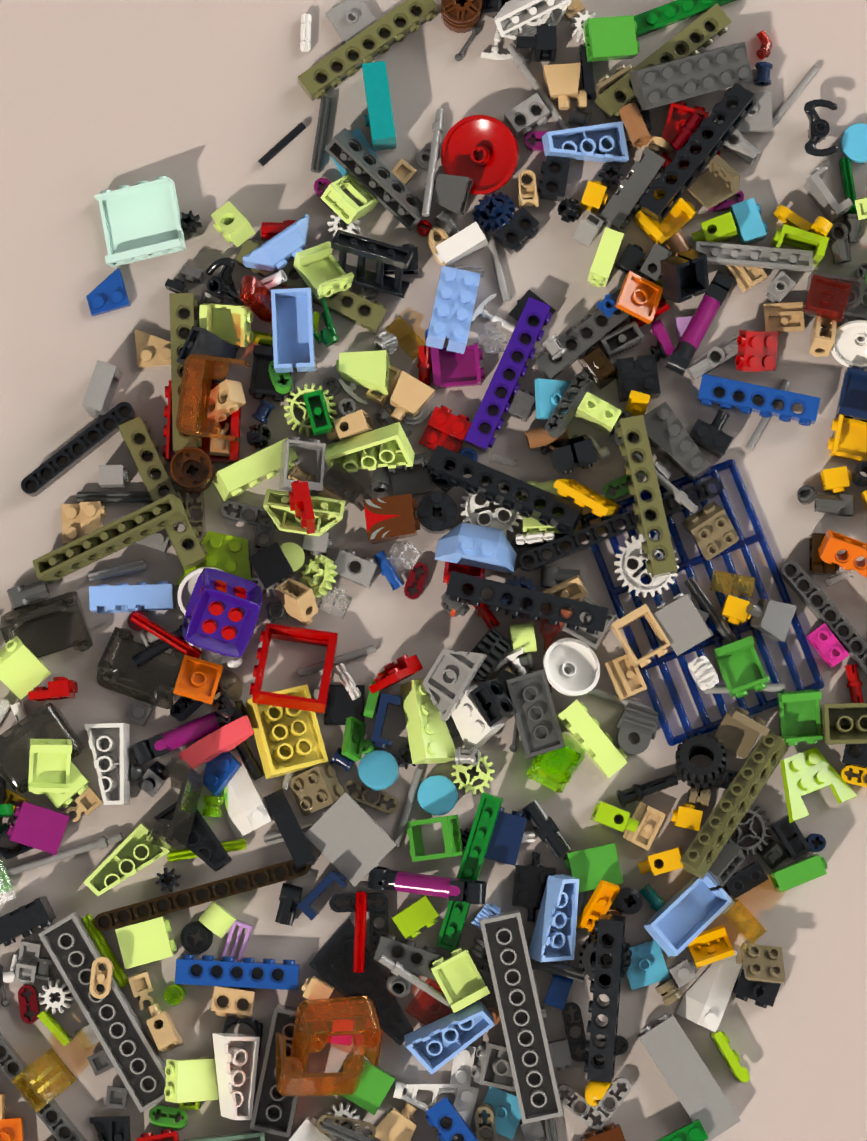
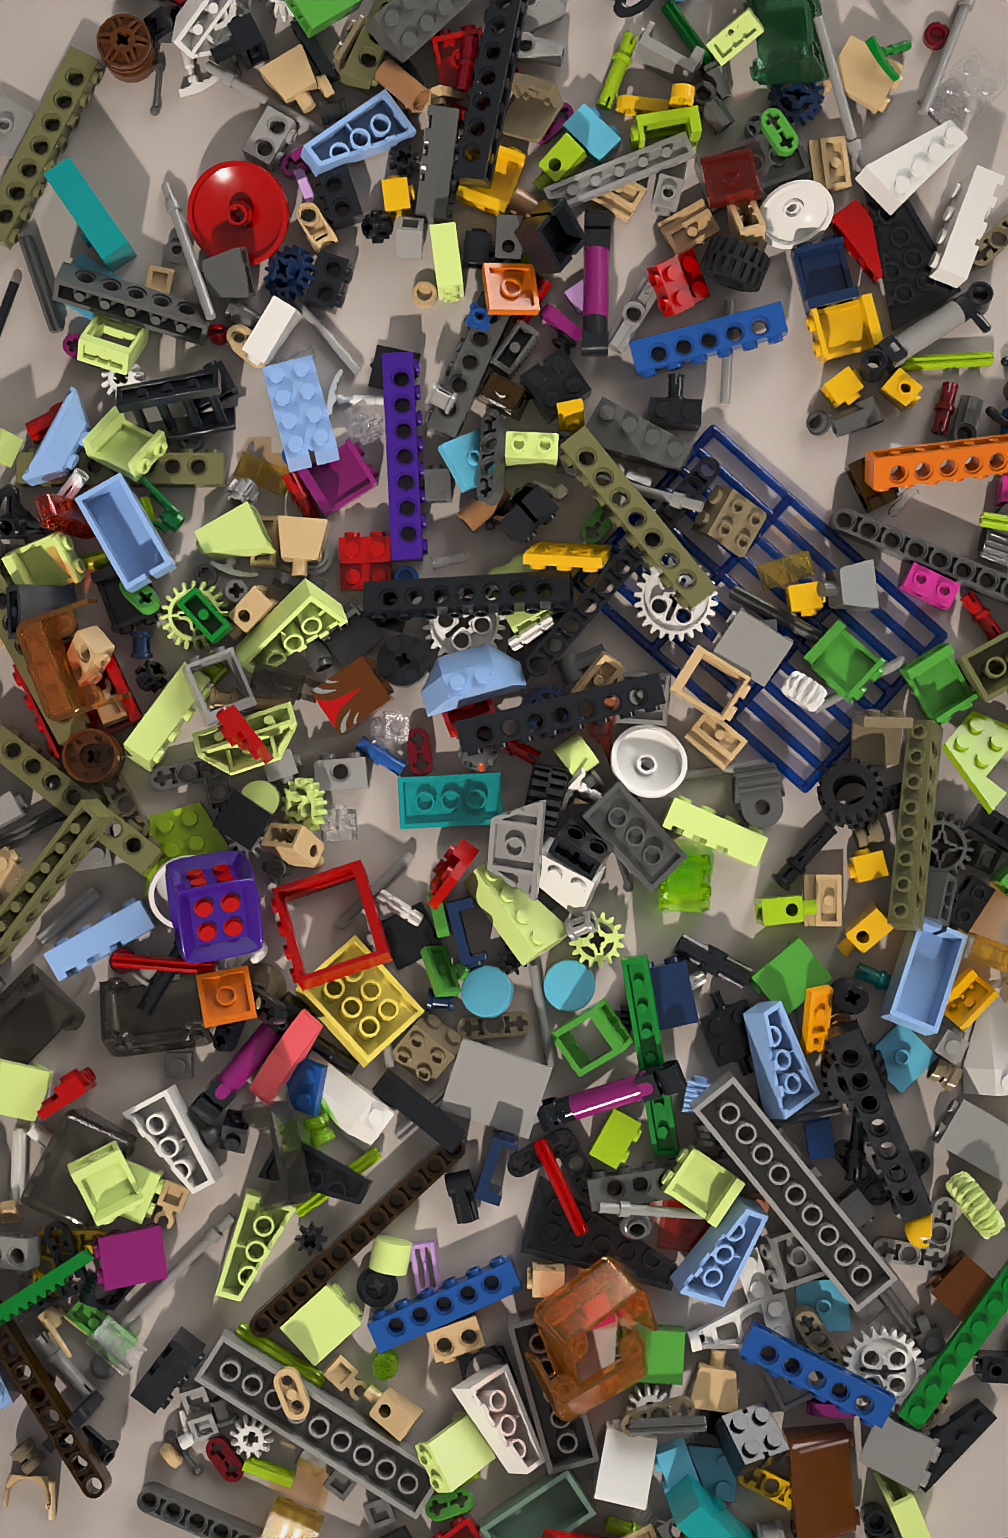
camera: 25 degrees left, 5 degrees up
(304, 455) = (216, 672): none -> lime bush
(419, 624) = (449, 800): none -> teal plate
(534, 157) = (304, 185): none -> lavender tile
(578, 1014) = (856, 1152): none -> black pin
(579, 271) = (424, 294): none -> tan tile
(644, 1093) = (975, 1204): none -> yellowish green gear
(794, 181) = (621, 61): none -> lime pin
(802, 357) = (734, 264): none -> black tyre

